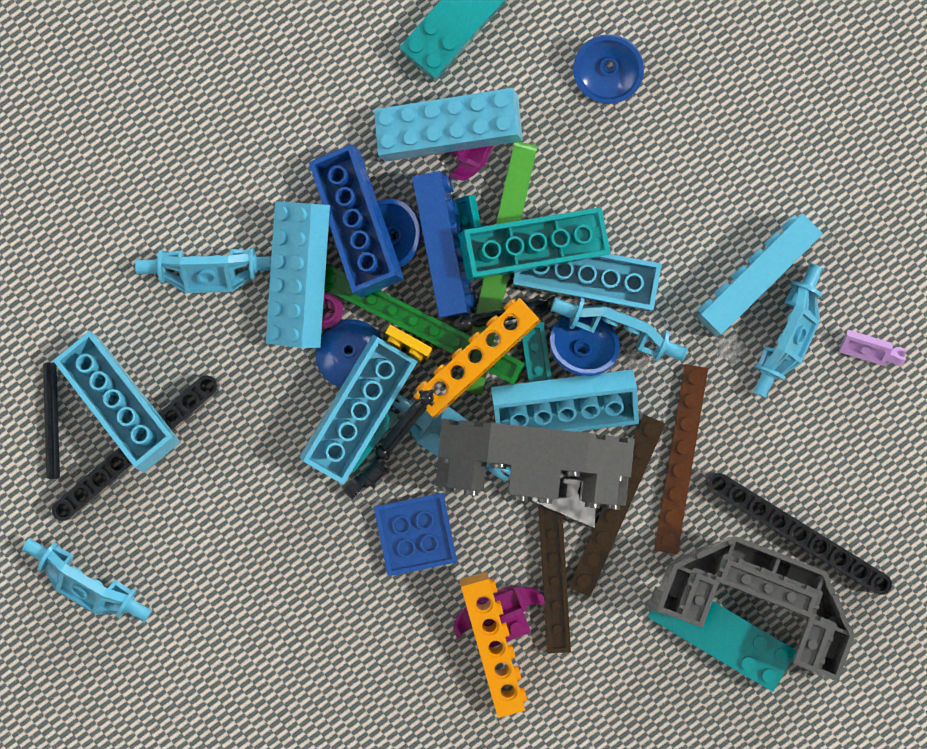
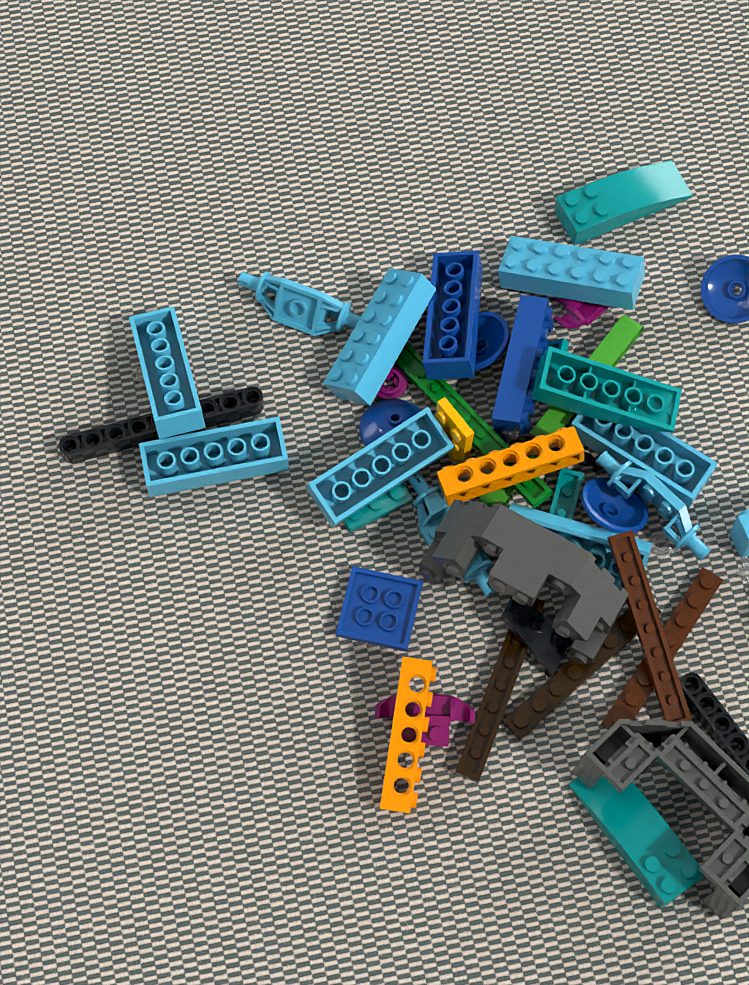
camera: 25 degrees right, 20 degrees down
(51, 420) = (99, 373): black axle -> none
(80, 588) = (52, 521): medium azure plate -> none
(199, 460) = (214, 456): none -> medium azure brick
(370, 476) = (361, 540): black connector -> none
(404, 424) = (416, 497): black wheel -> none
(662, 453) = (649, 627): none -> reddish brown plate

